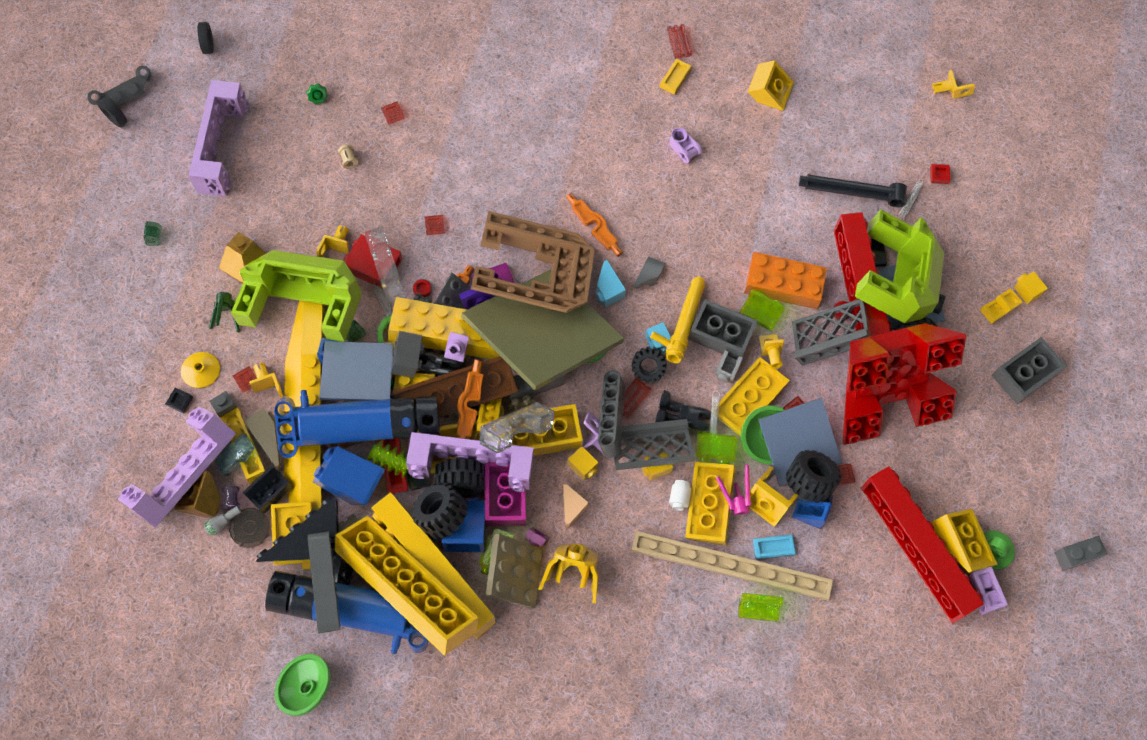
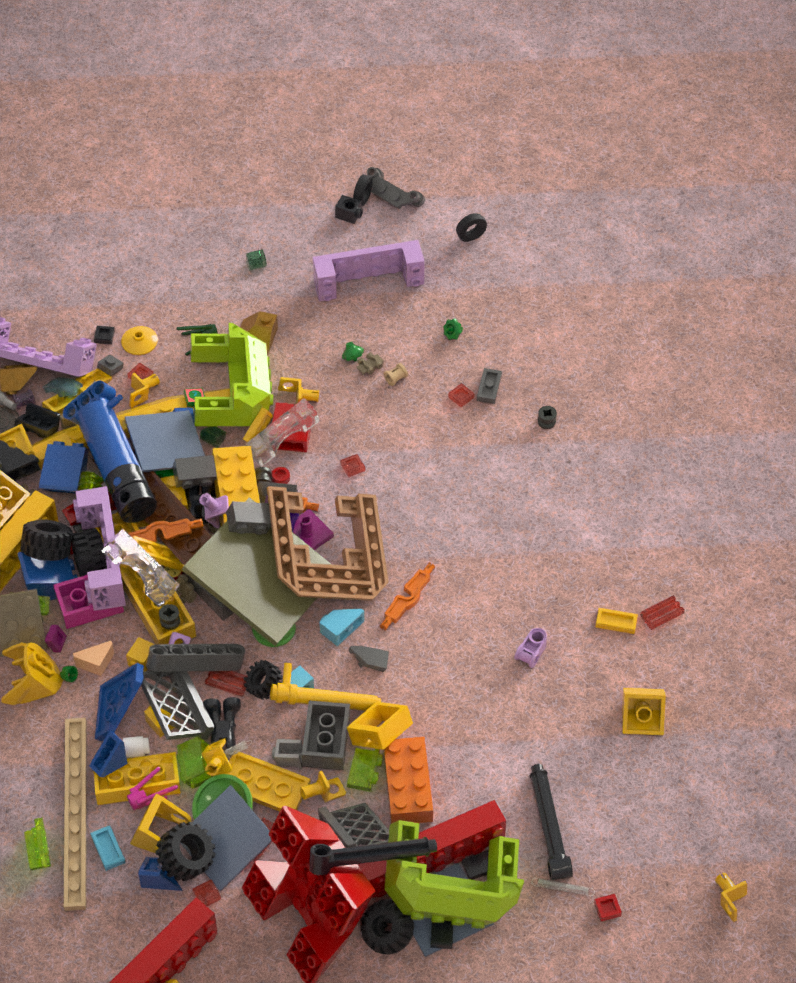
camera: 75 degrees right, 15 degrees down
(121, 134) = (348, 209): none -> black brick
(306, 184) = (352, 352): none -> green piece
(307, 333) = (190, 395): none -> green tile
(326, 178) = (368, 366): none -> dark tan piece
(365, 289) = (259, 424): none -> yellow tile
(393, 86) = (489, 385): none -> dark grey plate
(446, 58) = (550, 419): none -> pearl dark grey wheel
(492, 316) = (248, 517): none -> dark grey brick
(565, 426) = (172, 620): none -> pearl dark grey wheel
(578, 534) = (72, 670): none -> green hinge
(631, 496) = (116, 698): none -> blue plate
(685, 520) = (109, 756): none -> blue slope
(723, 425) = (216, 759): none -> yellow bracket
(743, 293) = (396, 719): none -> yellow window
(898, 316) = (324, 857): none -> black piece

